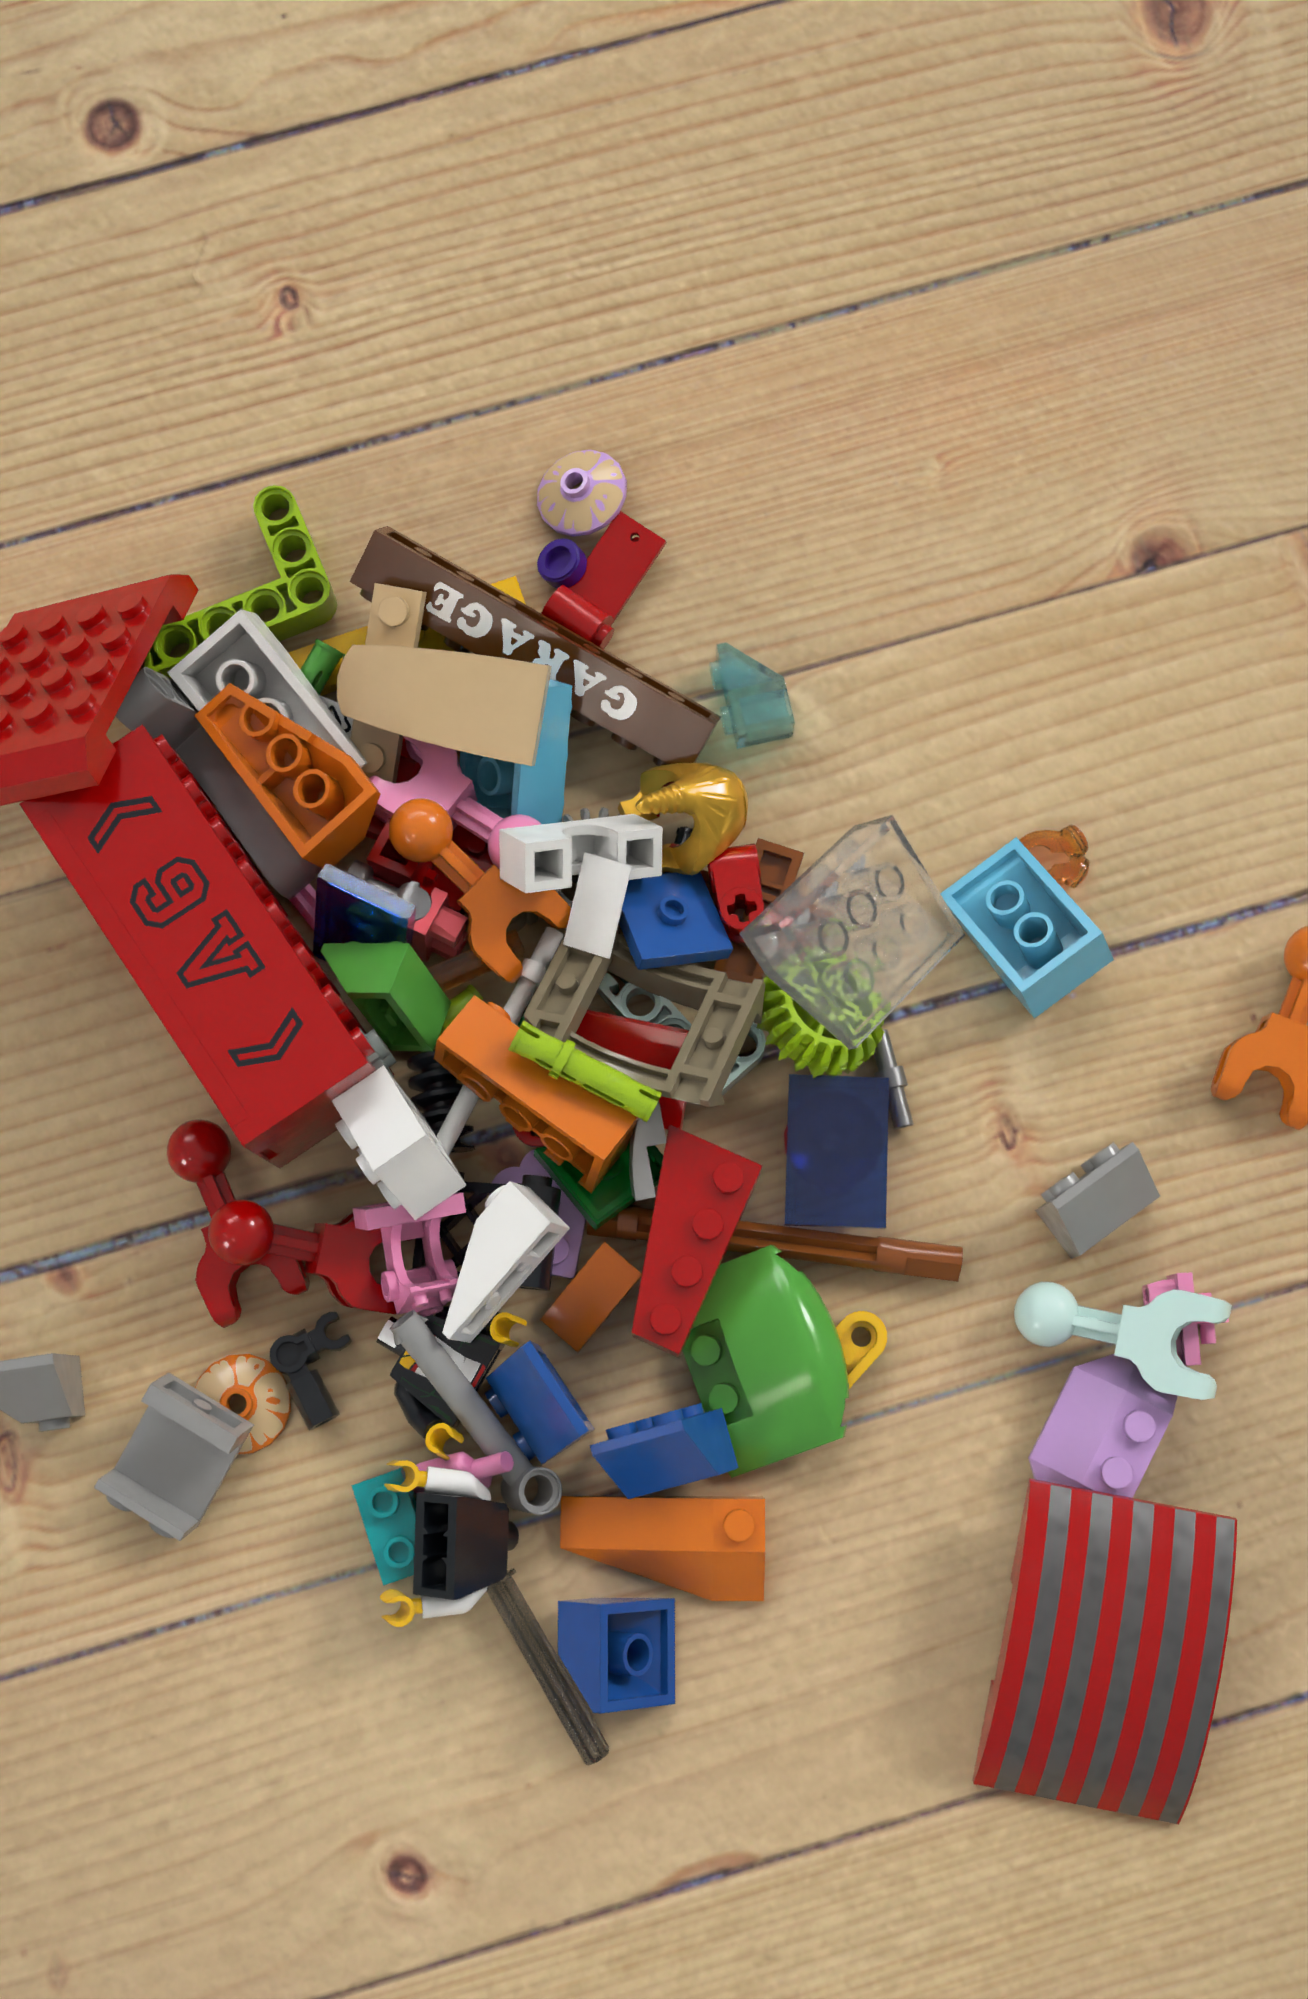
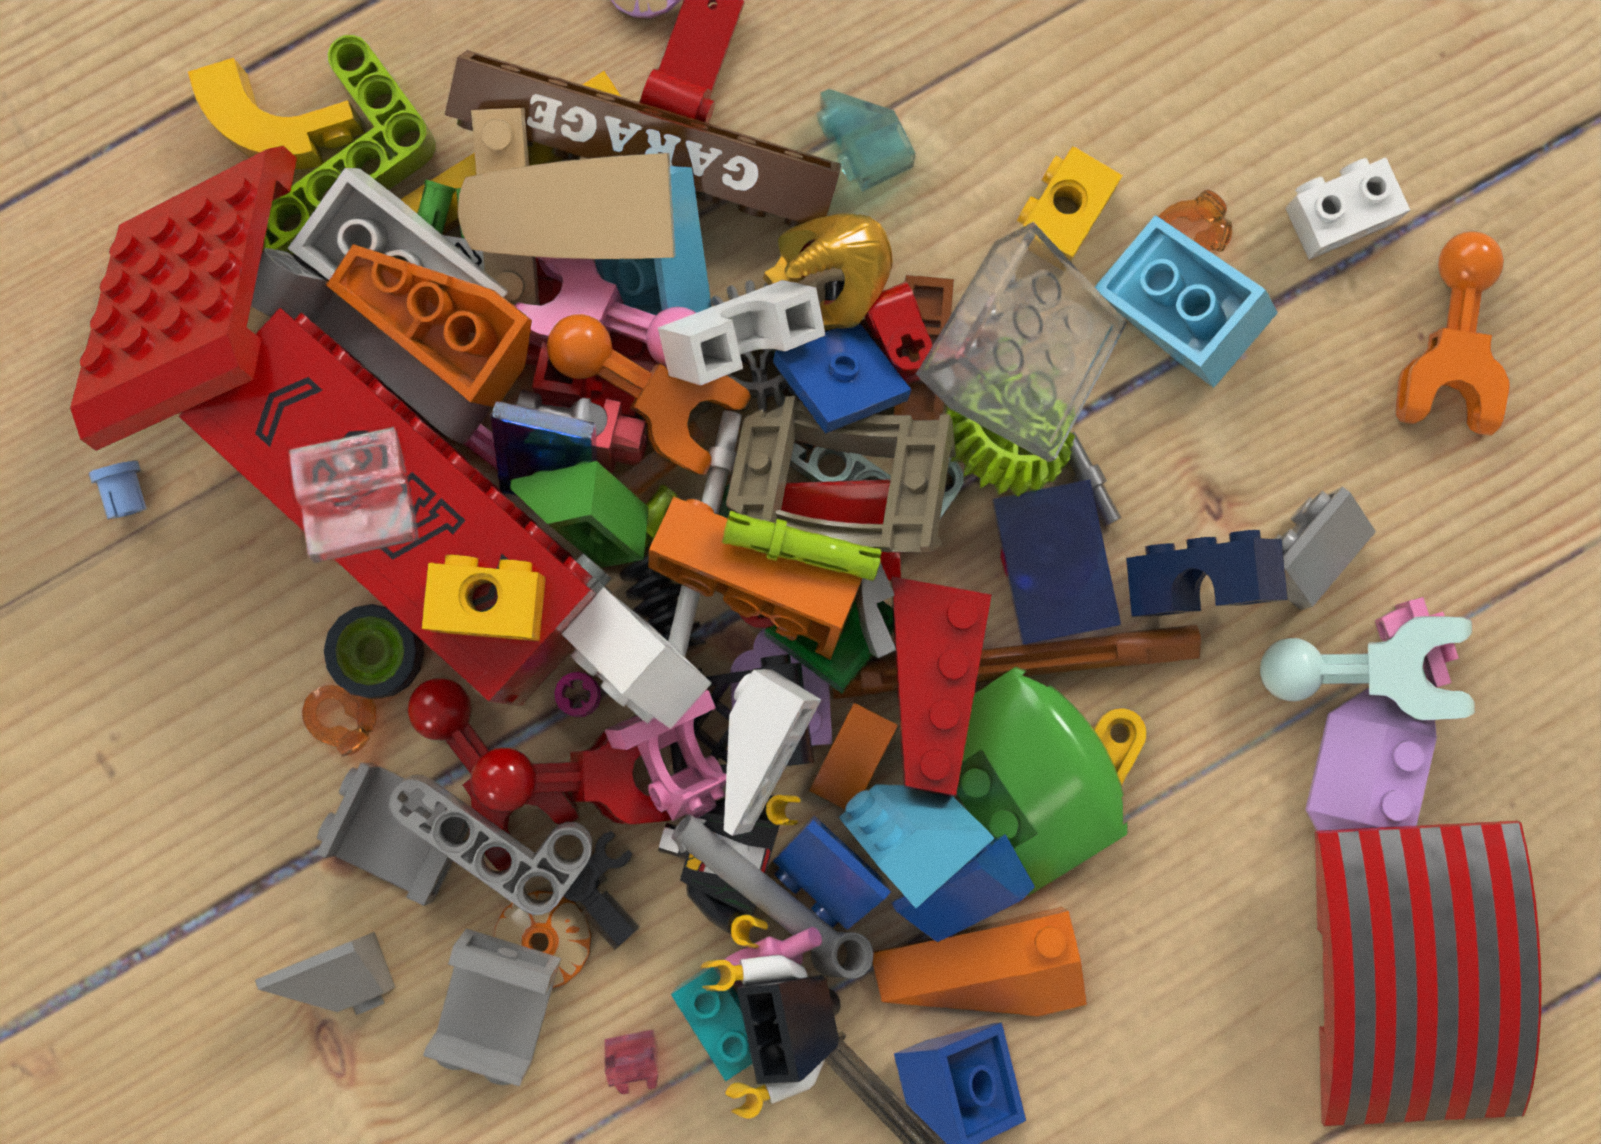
camera: 10 degrees left, 5 degrees up
(96, 1155) = (346, 740): none -> clear orange piece
(123, 1073) = (346, 648): none -> wheel
(124, 1260) = (375, 841): none -> light grey panel
(150, 527) = (230, 106): none -> yellow arch
(165, 917) = (353, 495): none -> clear slope
(209, 1282) = (484, 835): none -> light grey beam
(231, 1037) = (451, 606): none -> yellow brick
(297, 1543) = (631, 1059): none -> clear pink tile
(324, 1177) = (566, 704): none -> dark pink bush
(562, 563) = (646, 47): dark purple tile -> none
(597, 905) = (770, 379): white sticker -> none
(628, 1385) = (914, 836): none -> medium azure slope
(953, 788) = (1083, 181): none -> yellow brick
(1012, 1199) = (1241, 572): none -> dark blue arch
(1206, 873) = (1346, 207): none -> white brick

